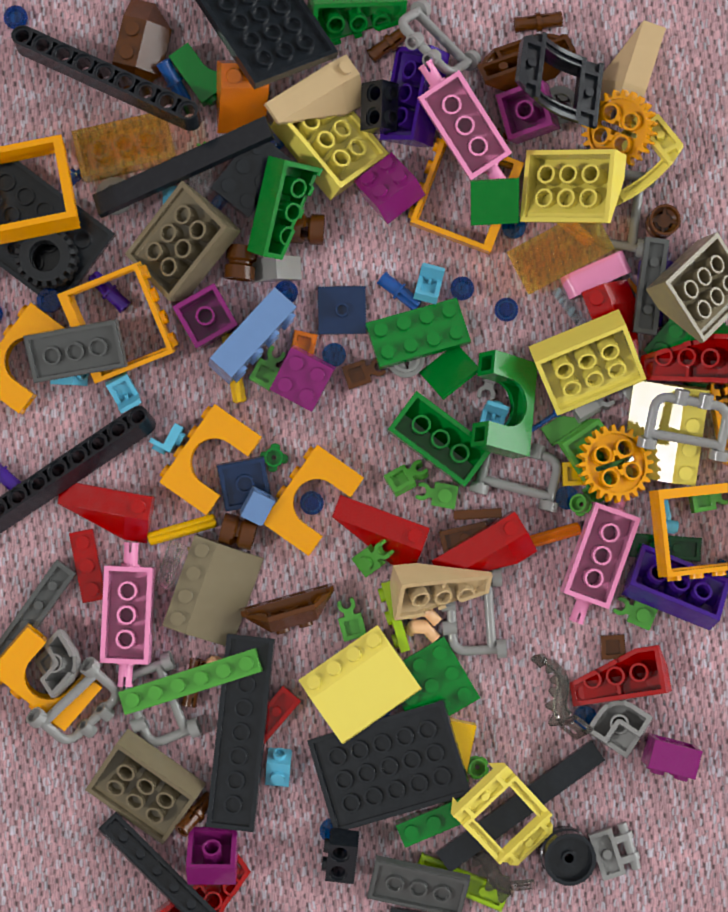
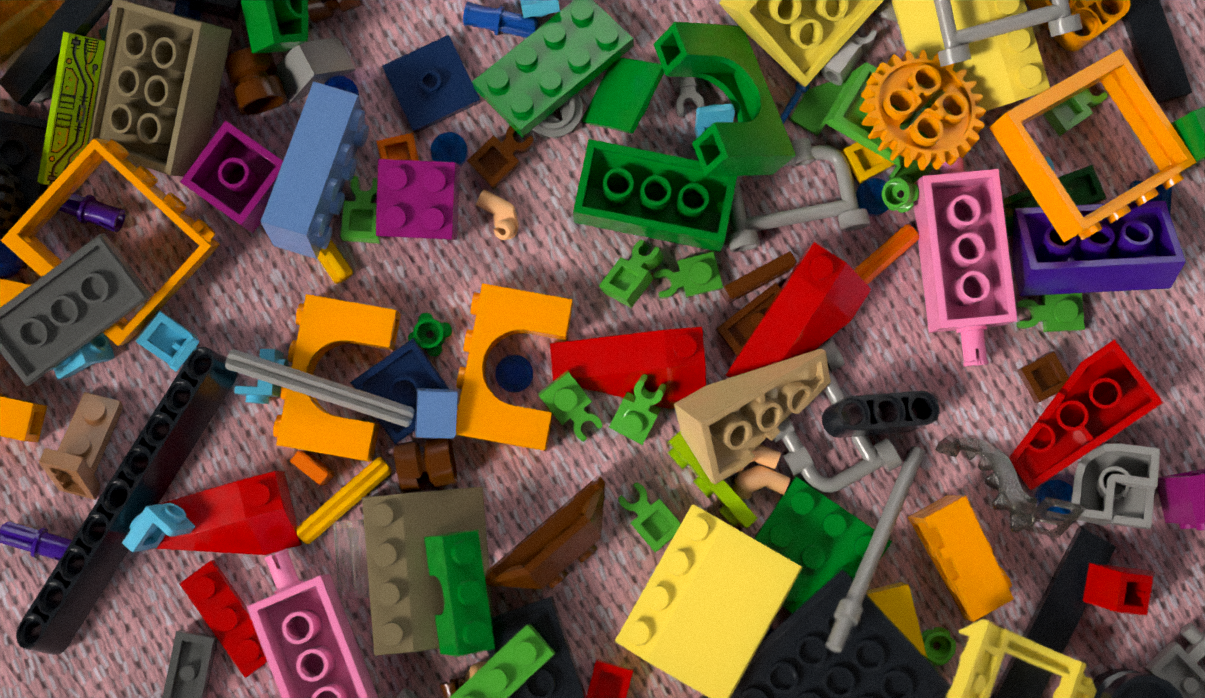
camera: 25 degrees left, 5 degrees down
(43, 437) = (83, 446): none -> medium nougat bracket
(70, 494) = (155, 523): none -> medium azure bracket
(127, 232) = (71, 104): none -> lime tile
(173, 503) = (312, 467): none -> orange tile
(198, 462) = (319, 388): none -> light grey axle
(231, 600) = (466, 618): none -> green arch
(334, 533) = (567, 401): none -> bright green plate
(348, 407) = (503, 214): none -> light nougat arm
(435, 723) = (850, 609): none -> light grey bar
(515, 724) = (962, 556): none -> light orange wedge
(517, 624) = (894, 406): none -> black beam
(594, 784) = (1119, 588): none -> red slope

